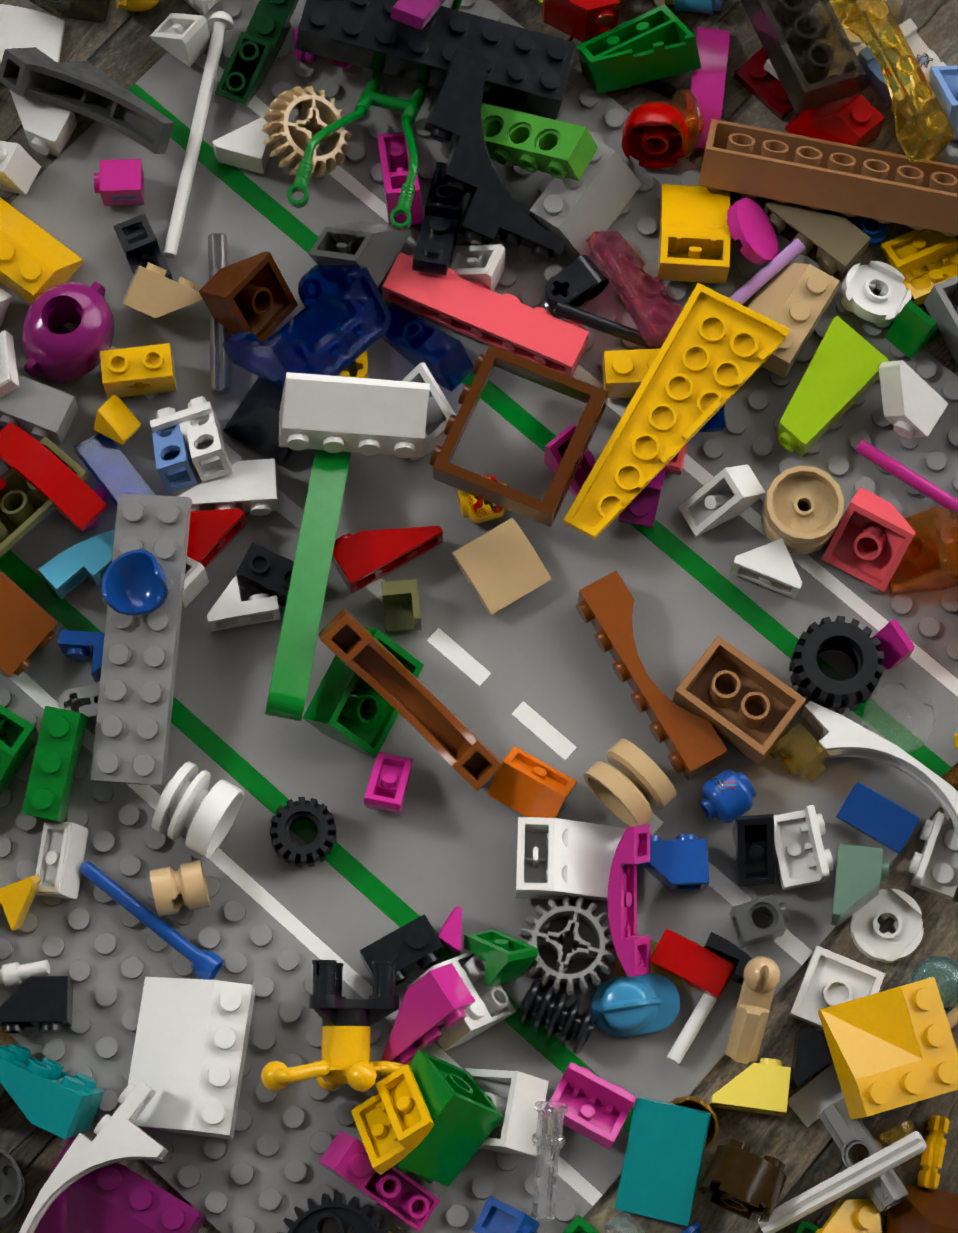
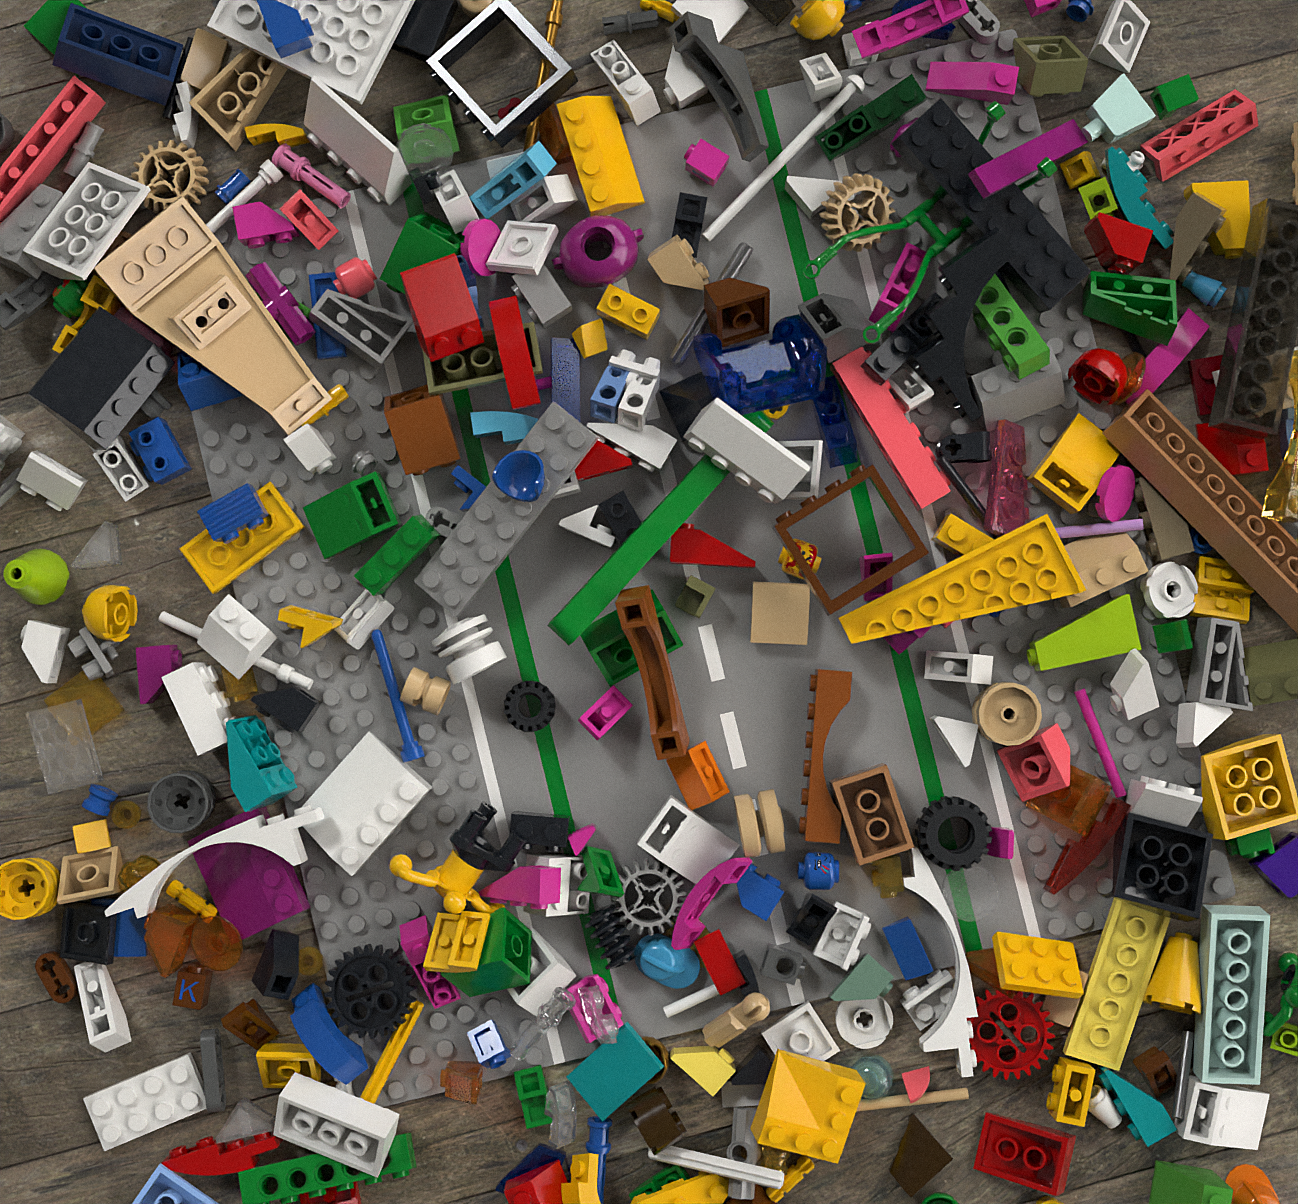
camera: 40 degrees right, 15 degrees up
(607, 1110) = (602, 1025): none -> clear slope

